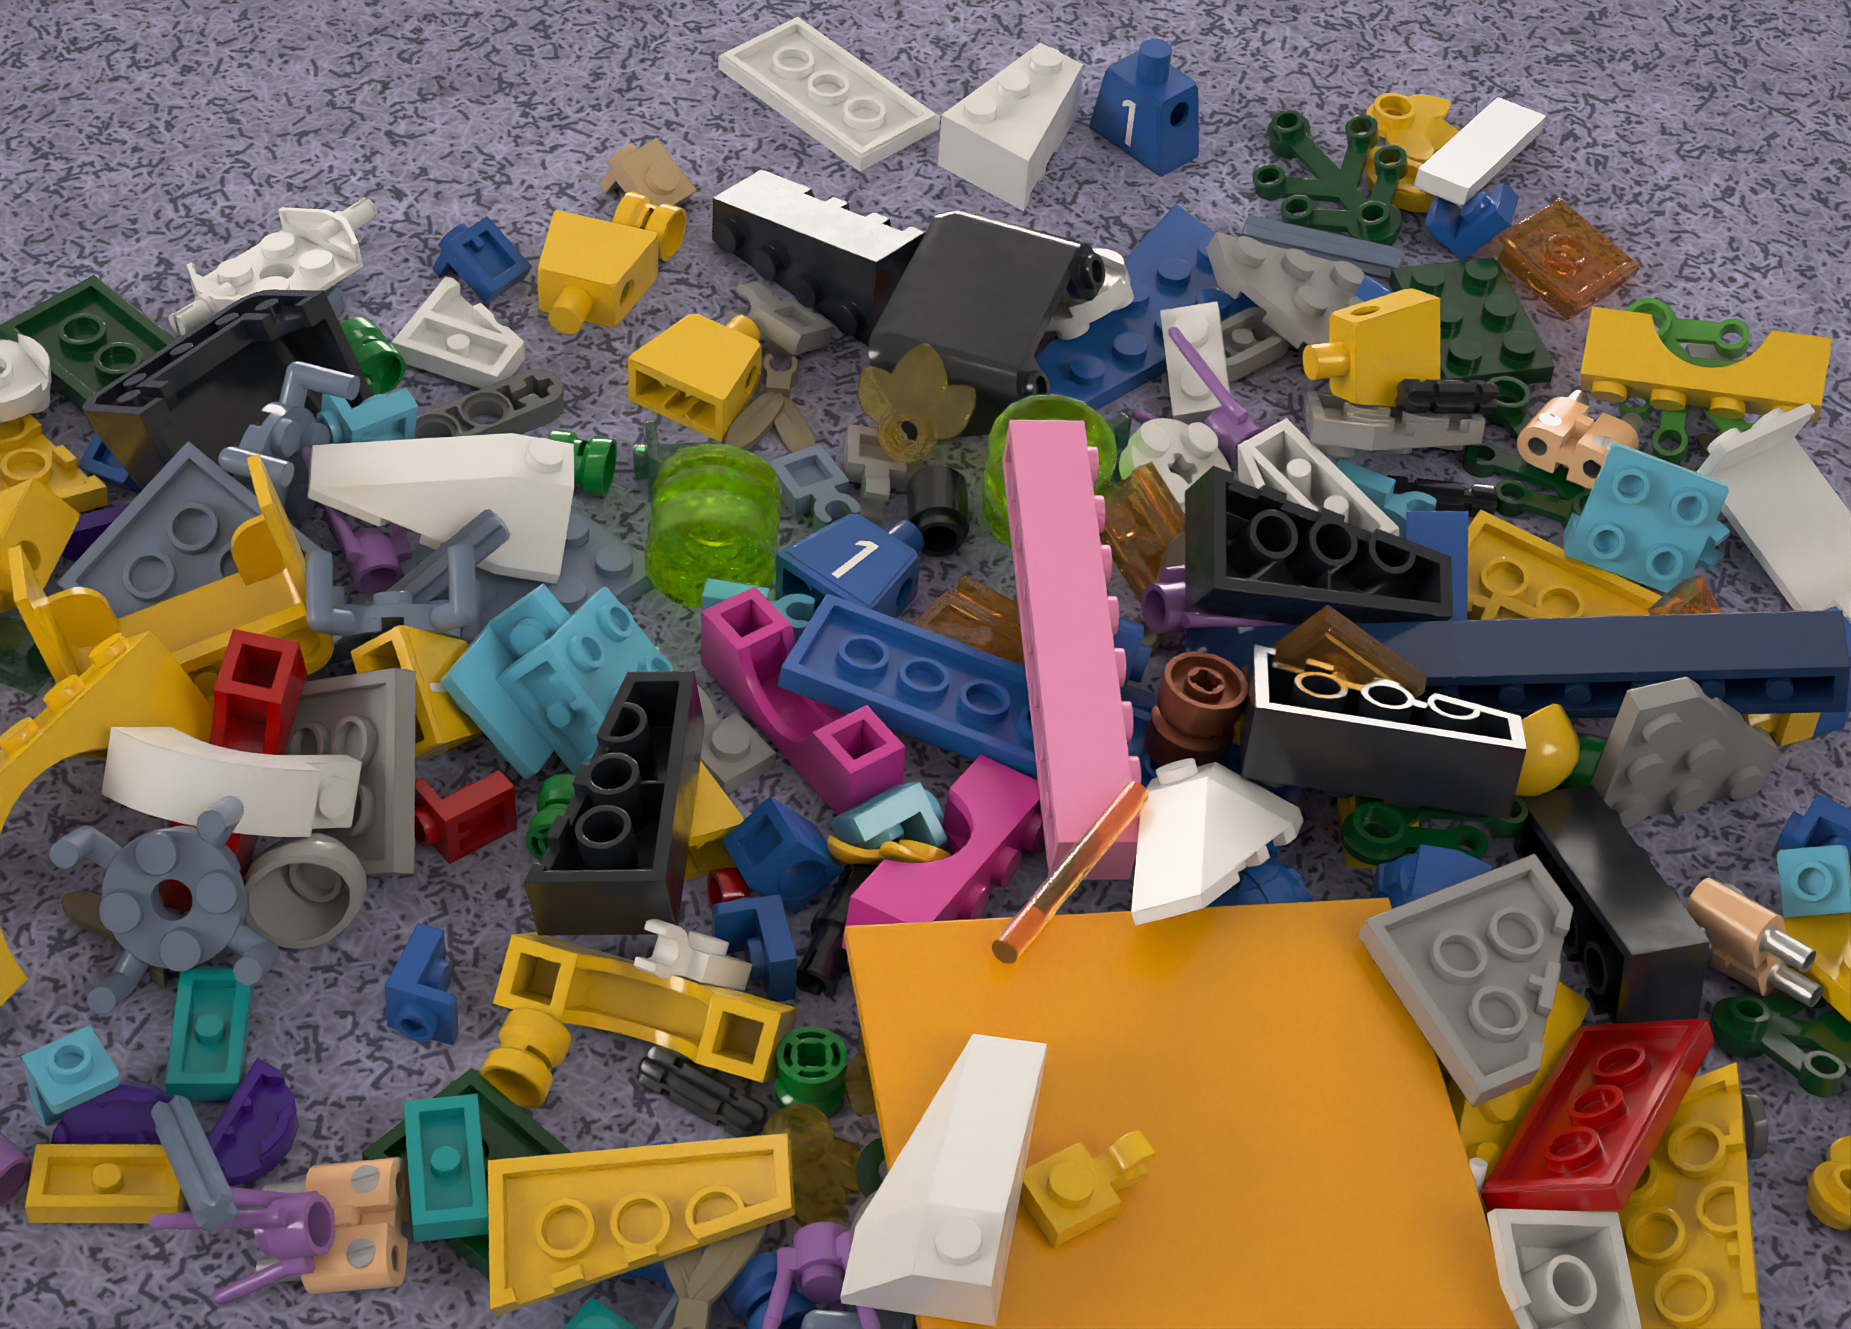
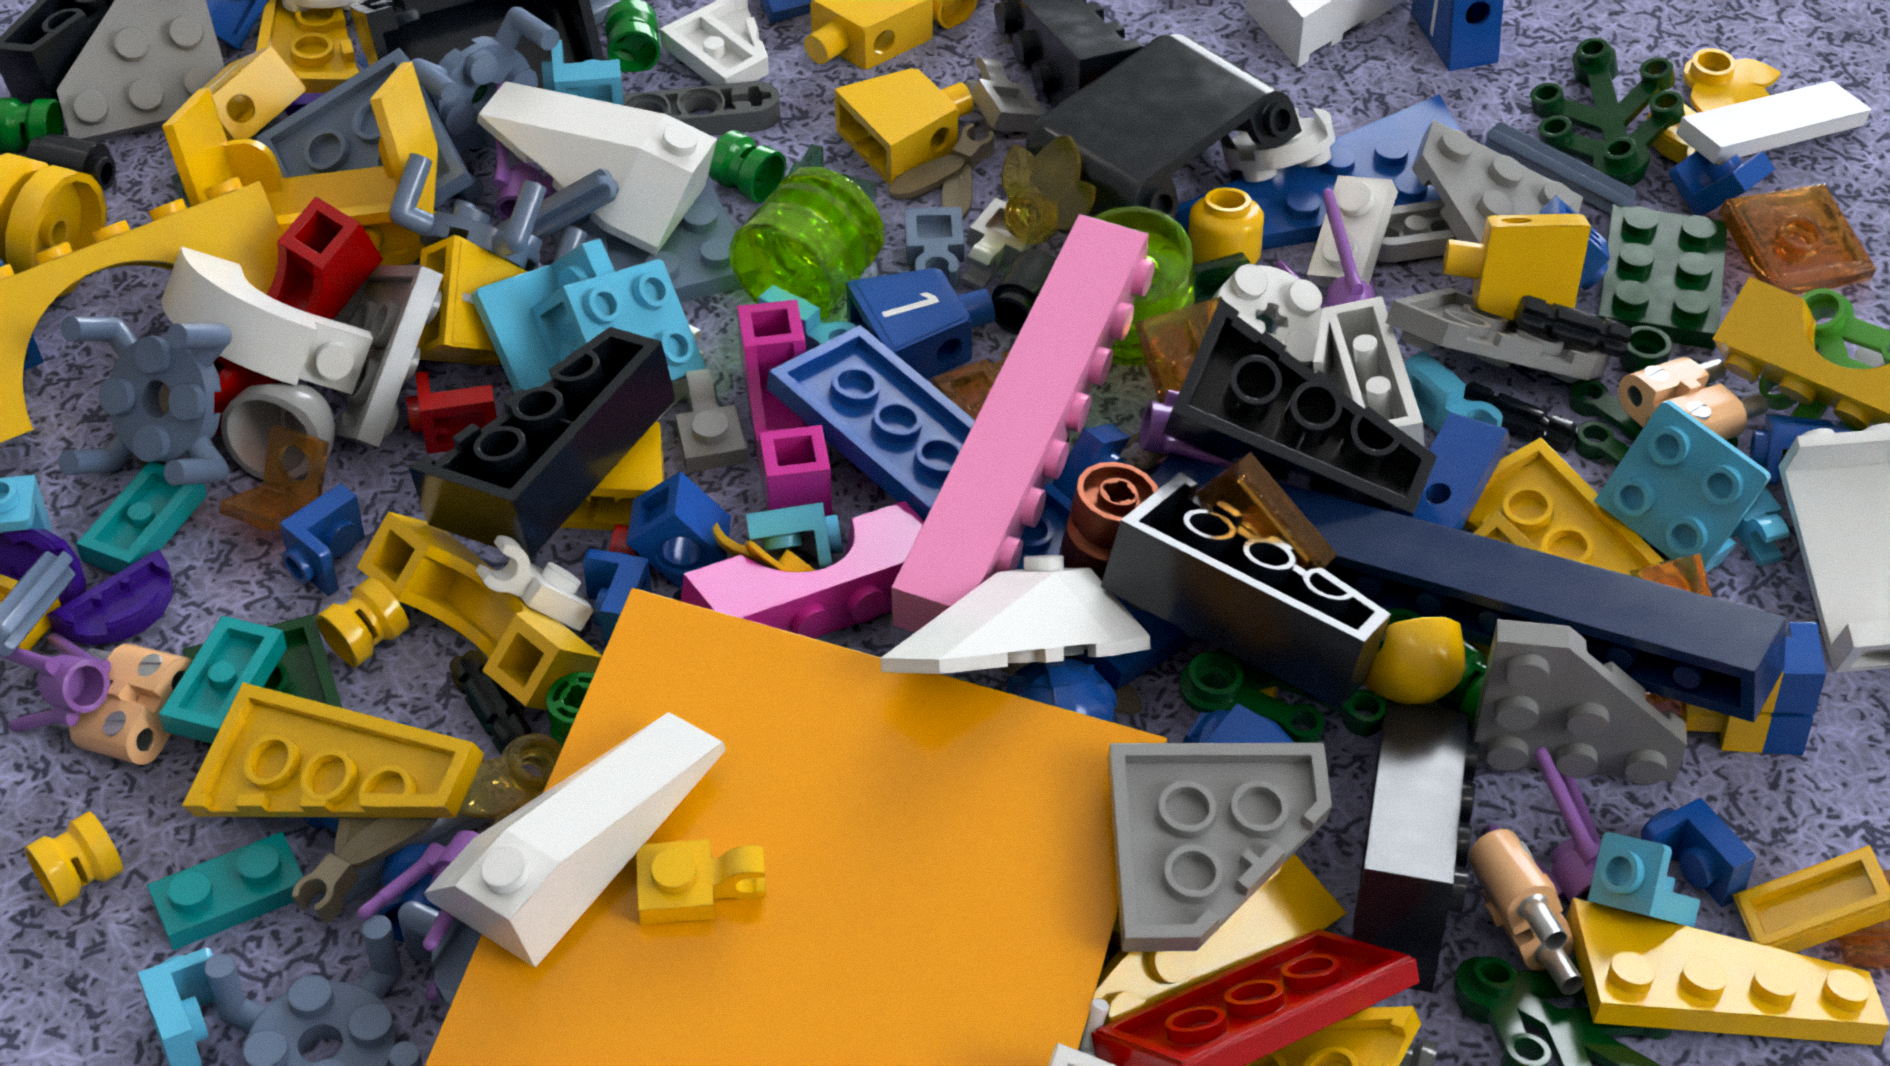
camera: 30 degrees right, 0 degrees up
(339, 965) = (280, 494): none -> clear orange bracket
(1069, 873) = (866, 610): clear orange bar -> none
(1095, 381) = (1225, 224): none -> yellow head
(1686, 441) = (1779, 434): none -> blue bracket
(1747, 873) = (1577, 856): none -> medium lavender plant

